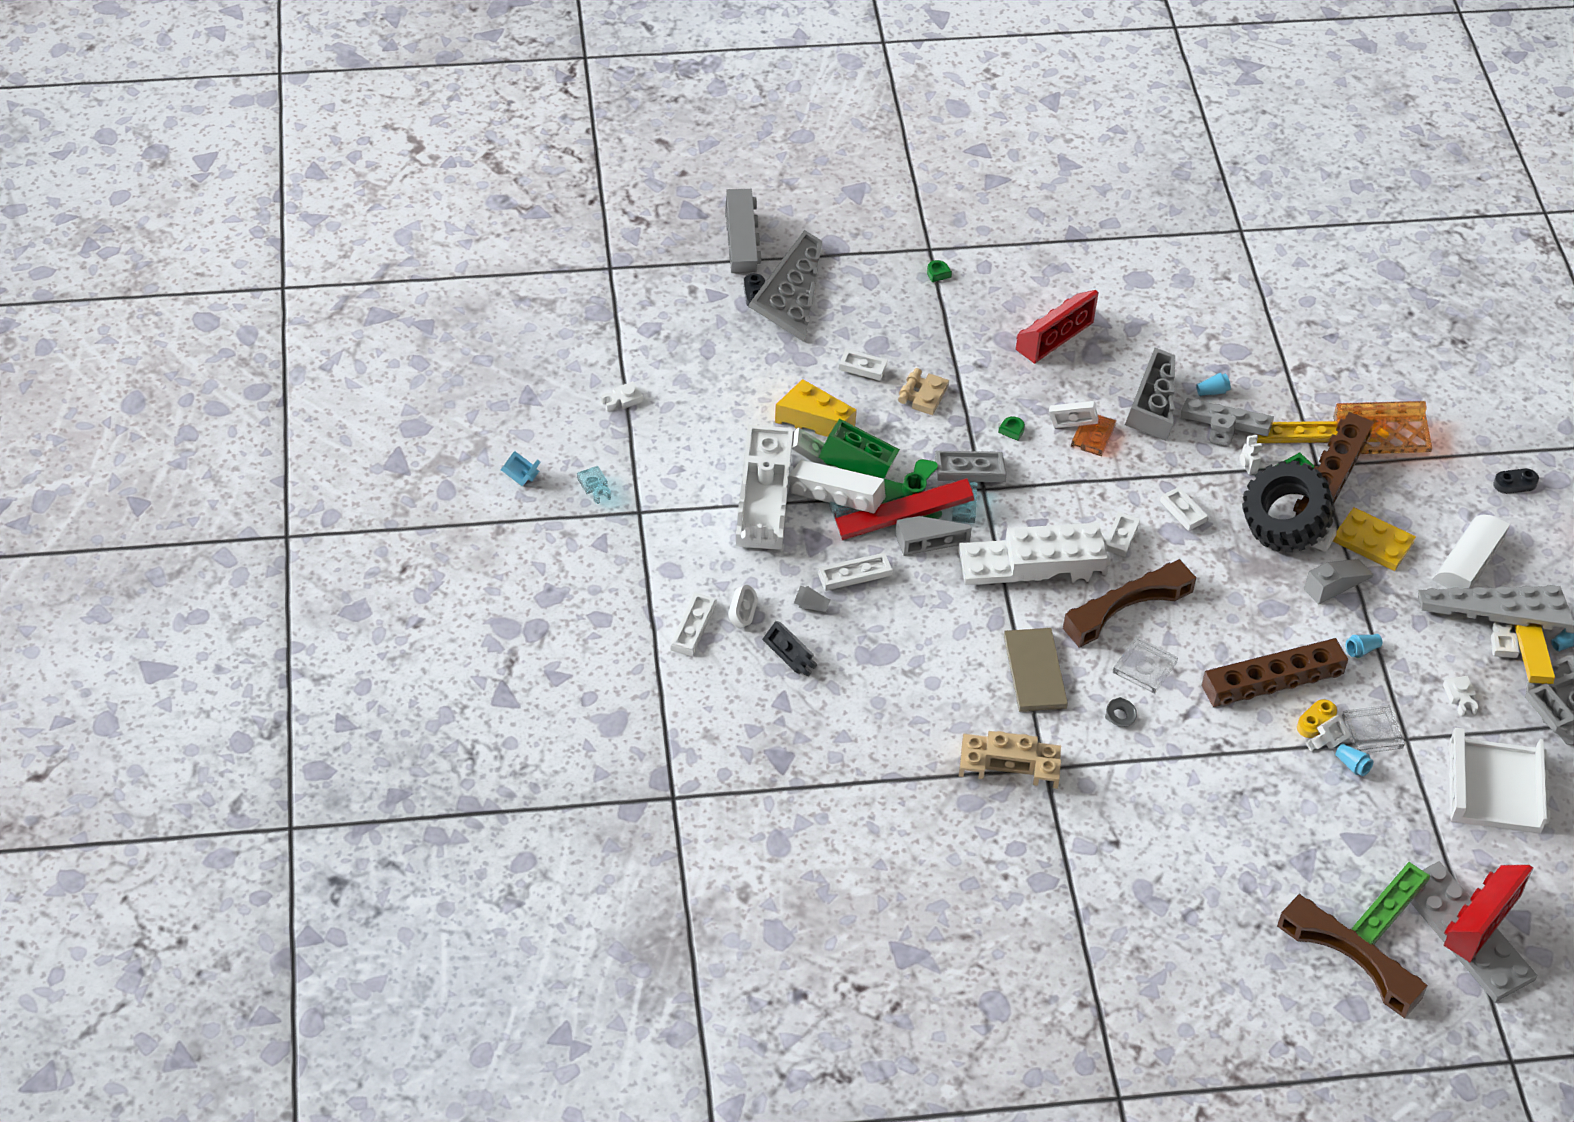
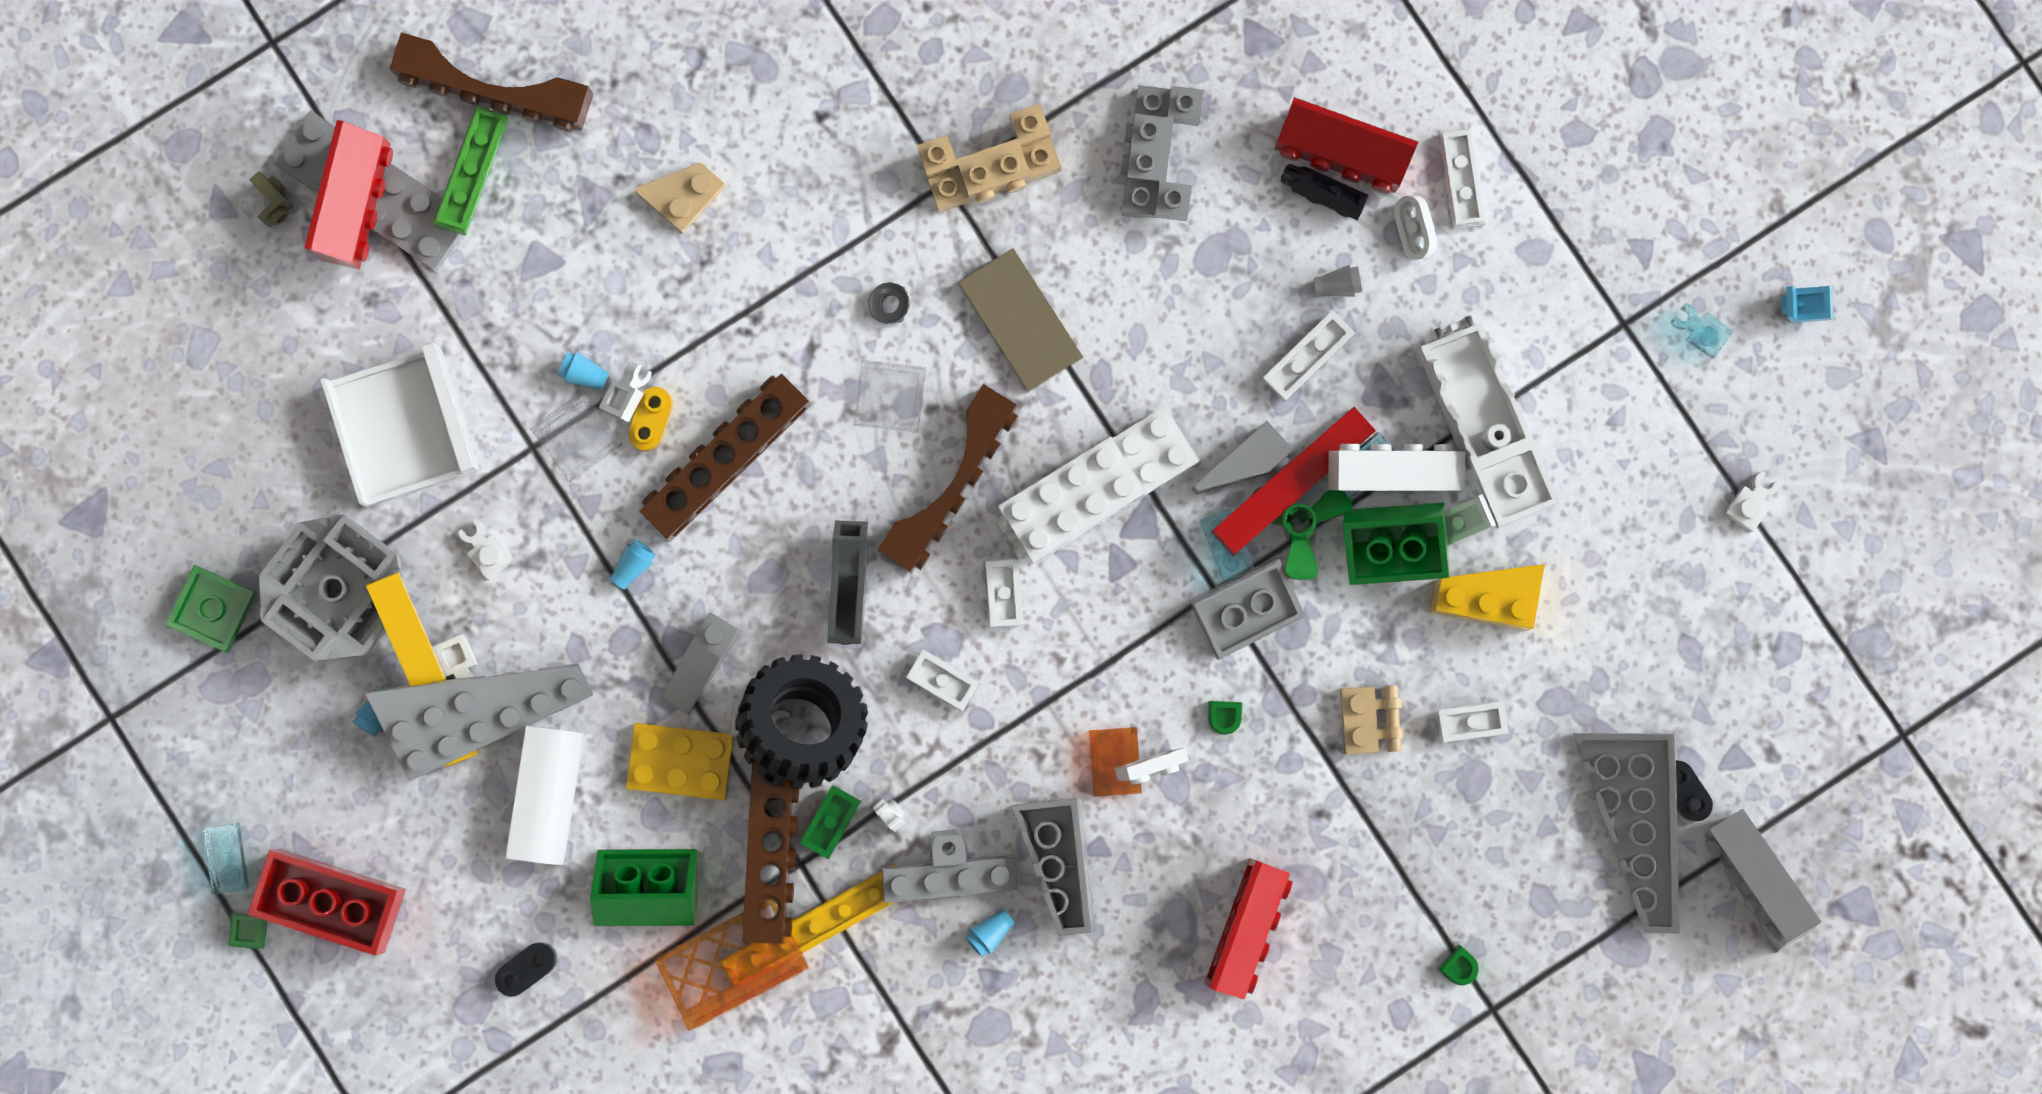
camera: 150 degrees right, 35 degrees up
(763, 664) = (1345, 146): none -> red slope
(894, 721) = (1147, 163): none -> light grey bracket
(1225, 568) = (848, 582): none -> dark grey arch
(1237, 834) = (682, 194): none -> tan wing
(1422, 485) = (644, 887): none -> green slope
(1544, 953) = (272, 190): none -> olive bracket

